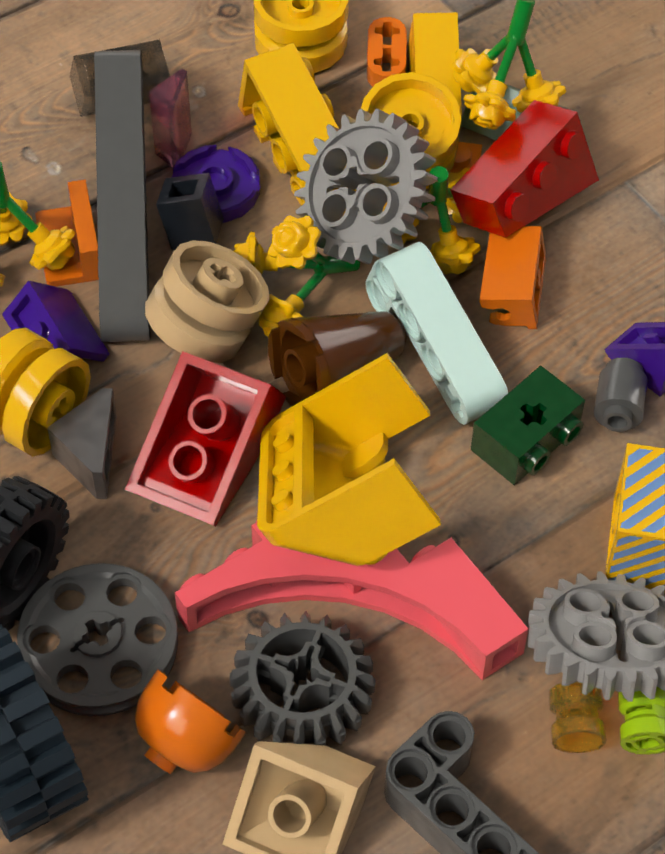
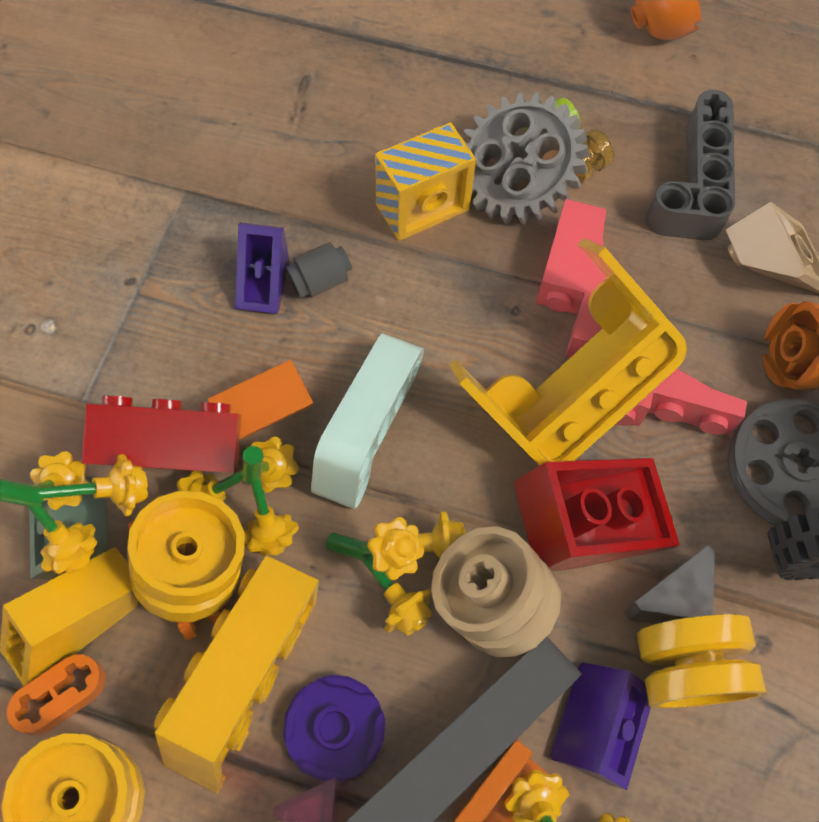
camera: 130 degrees left, 10 degrees up
(190, 209) = (403, 701): black brick -> none
(268, 662) = (715, 297): dark grey gear -> none
(328, 347) = (450, 468): reddish brown cone -> none
(364, 147) = (293, 528): light grey gear -> none
(528, 425) = (374, 309): dark green brick -> none

